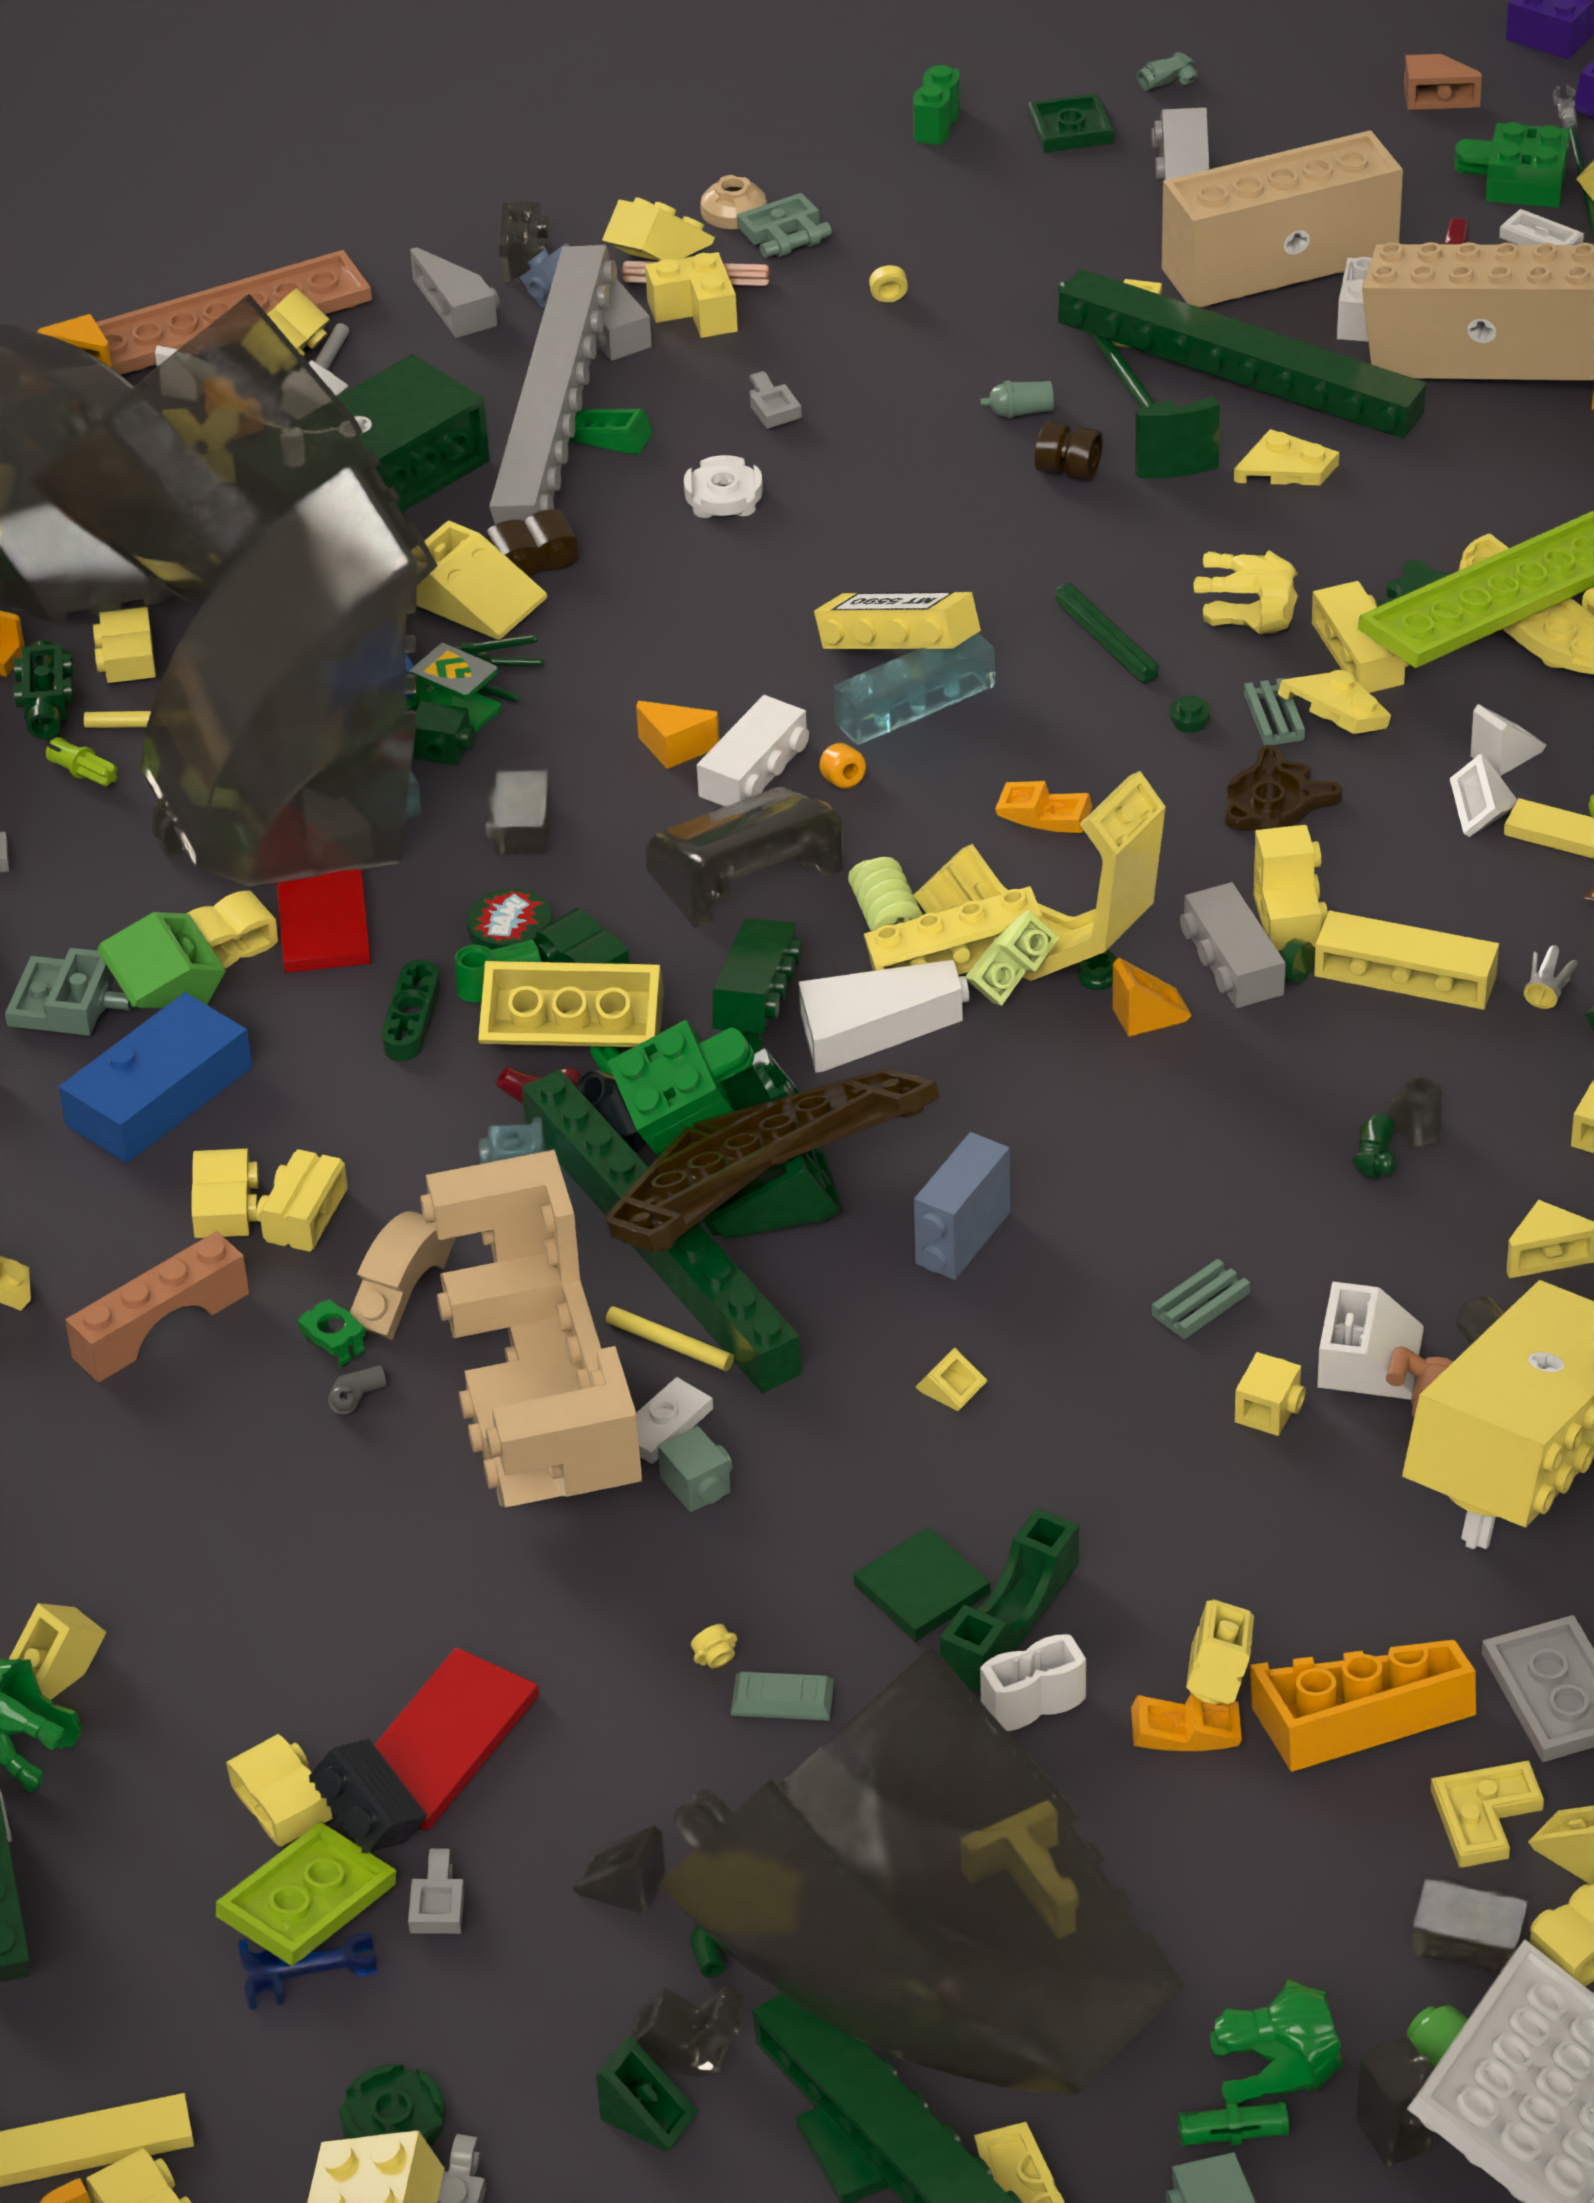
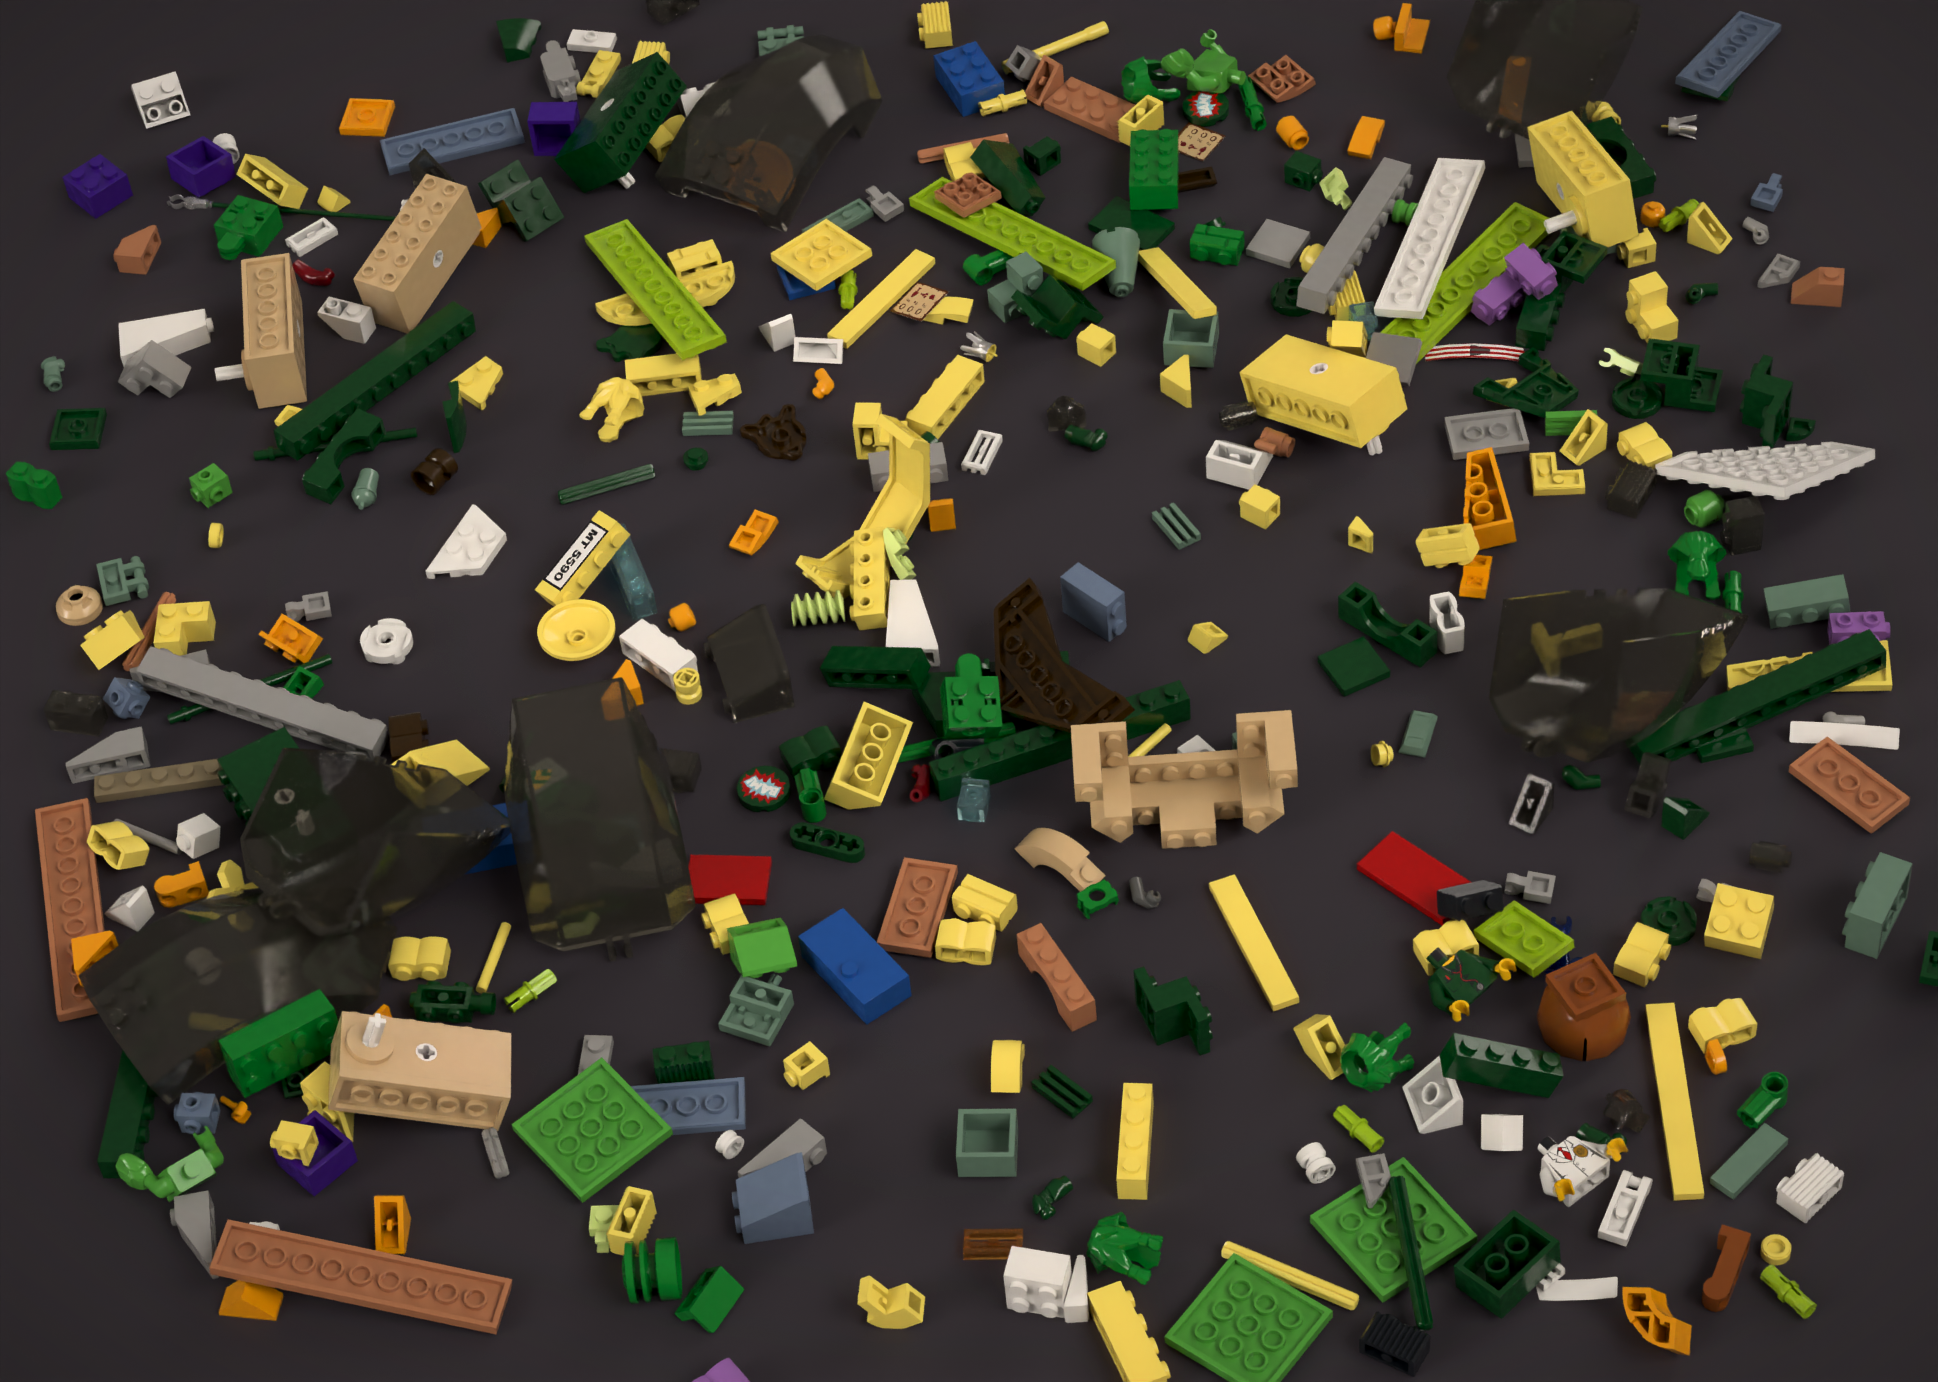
camera: 75 degrees left, 5 degrees up
(84, 1445) = (1172, 1010): none -> dark green bracket
(132, 1988) = (1582, 1004): none -> dark orange plate
(186, 1809) = (1463, 979): none -> dark green torso
(271, 1543) = (1254, 943): none -> light yellow tile
(281, 1122) = (917, 907): none -> nougat plate
(294, 2071) = (1641, 955): none -> light yellow brick
(419, 332) = (156, 780): none -> dark tan plate
(628, 401) = (187, 712): none -> dark green bar
(693, 793) = (687, 686): none -> light yellow wheel
(698, 397) = (293, 639): none -> light orange bracket
(770, 652) = (576, 630): none -> light yellow dish
(939, 526) = (469, 547): none -> white wing
(977, 252) = (210, 485): none -> bright green brick
(1031, 351) = (360, 433): none -> dark green arch
(1236, 1539) = (1360, 536): none -> light yellow slope
(1251, 129) = (173, 332): none -> white slope
(1307, 1032) = (974, 466): none -> white tile
(1401, 820) = (824, 385): none -> light orange arm

